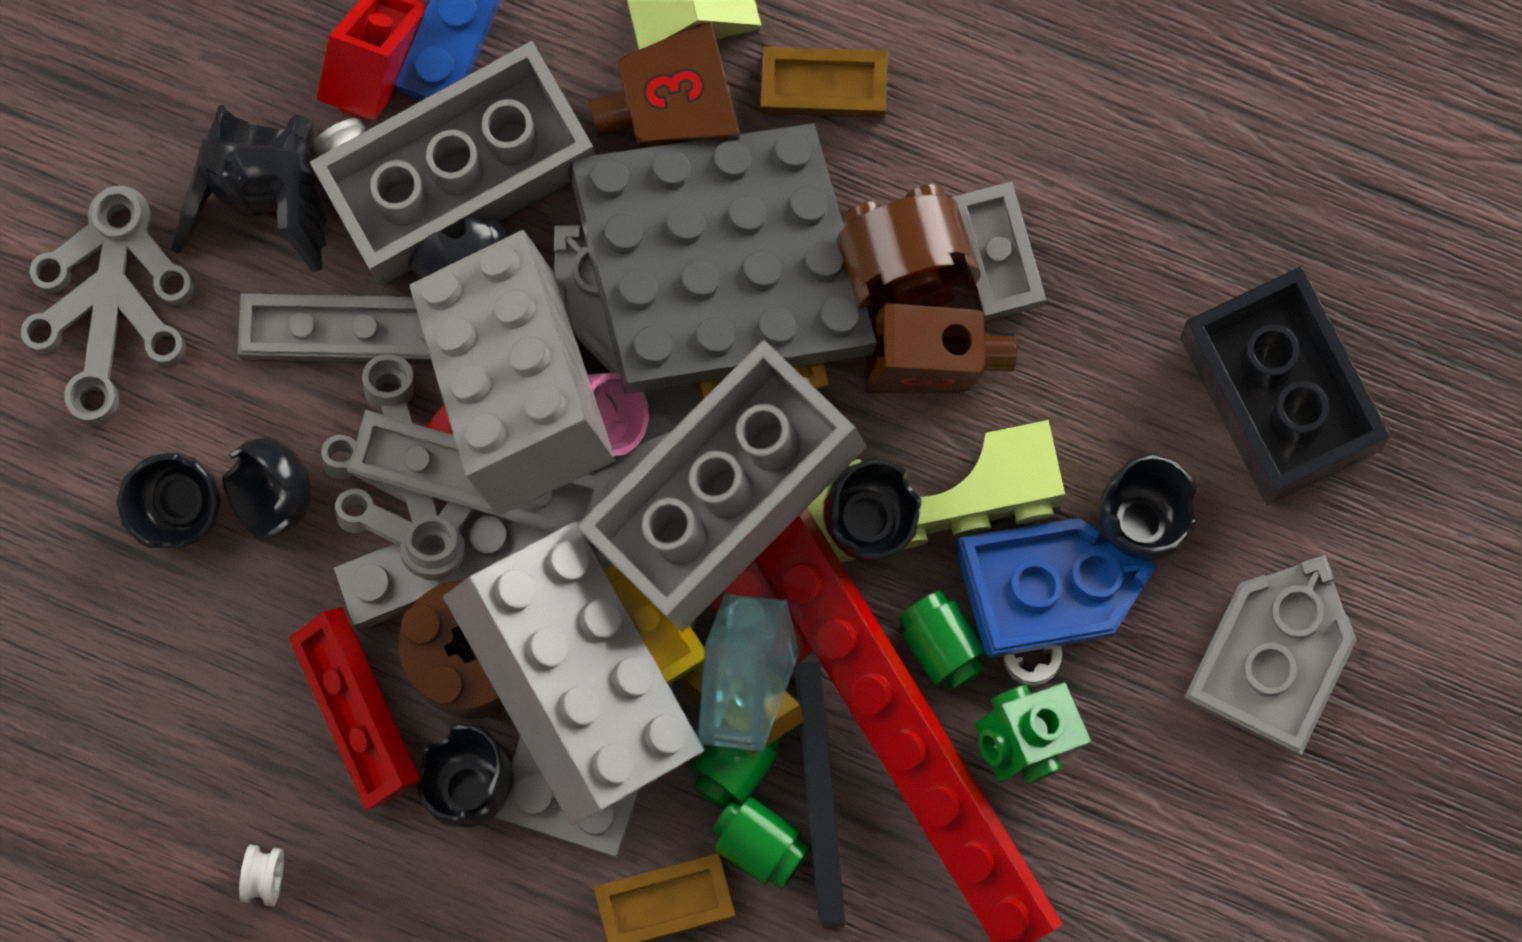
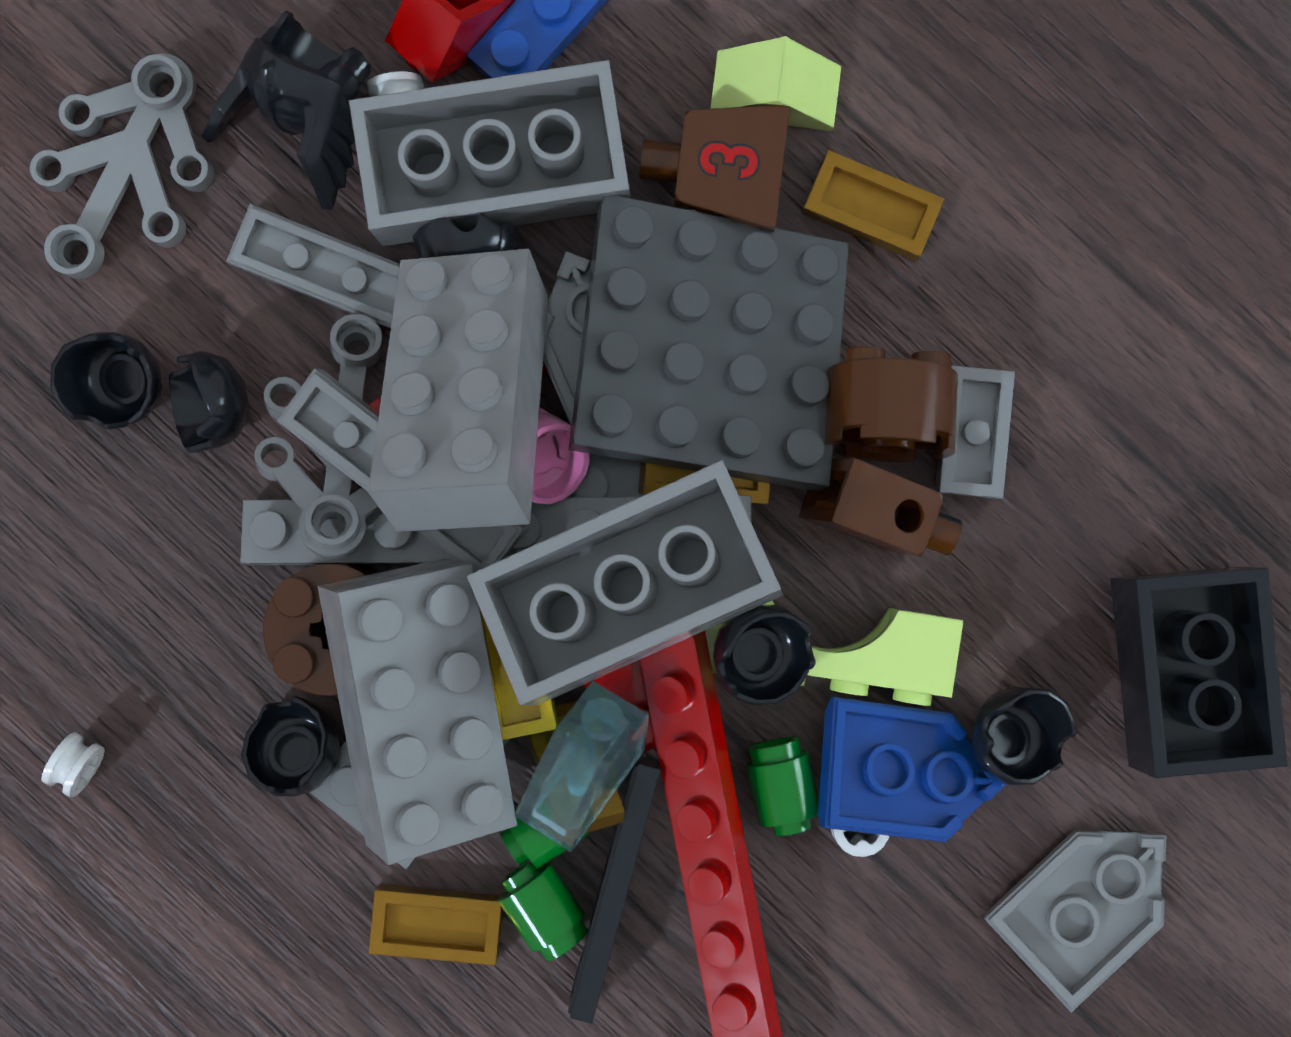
camera: 10 degrees right, 10 degrees up
(354, 708) = (214, 642): red plate -> none
(1031, 732) = (832, 907): green brick -> none

